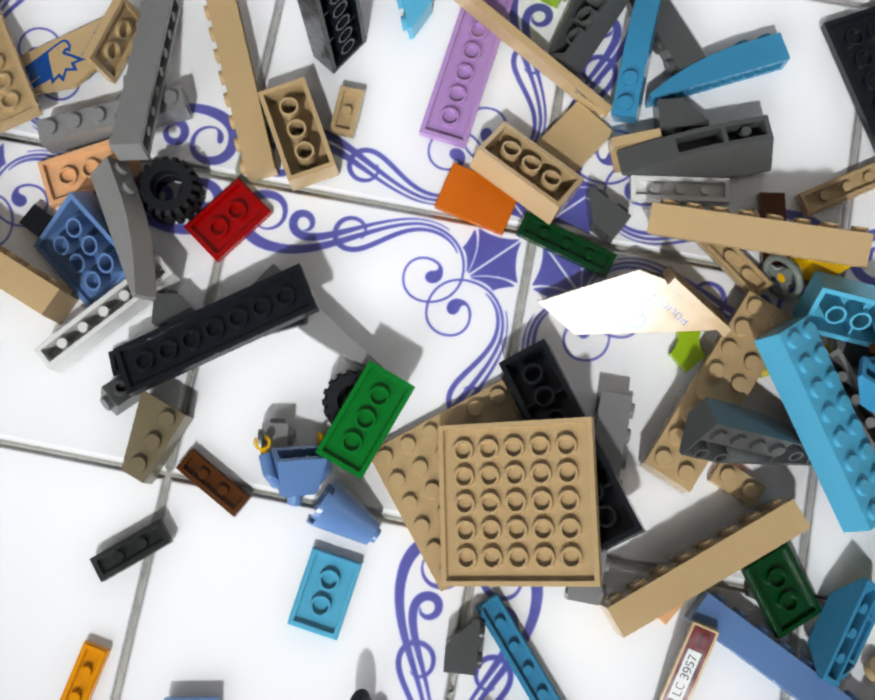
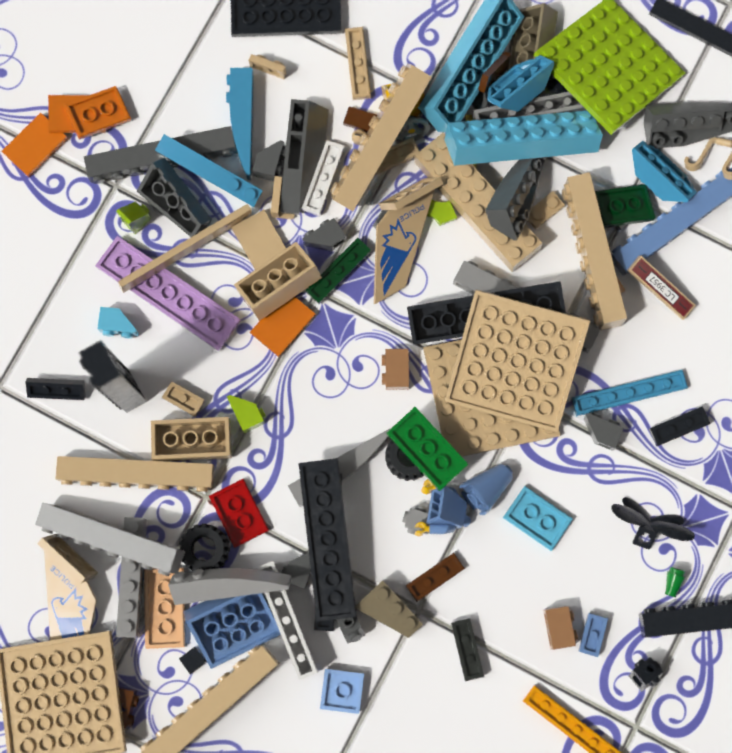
camera: 75 degrees left, 0 degrees up
(41, 408) = (342, 691): none -> light blue plate
(189, 663) = (560, 627): none -> medium nougat brick
(350, 189) = (247, 413): none -> lime slope
(462, 353) = (396, 369): none -> medium nougat brick
(799, 85) = (261, 63): none -> tan plate

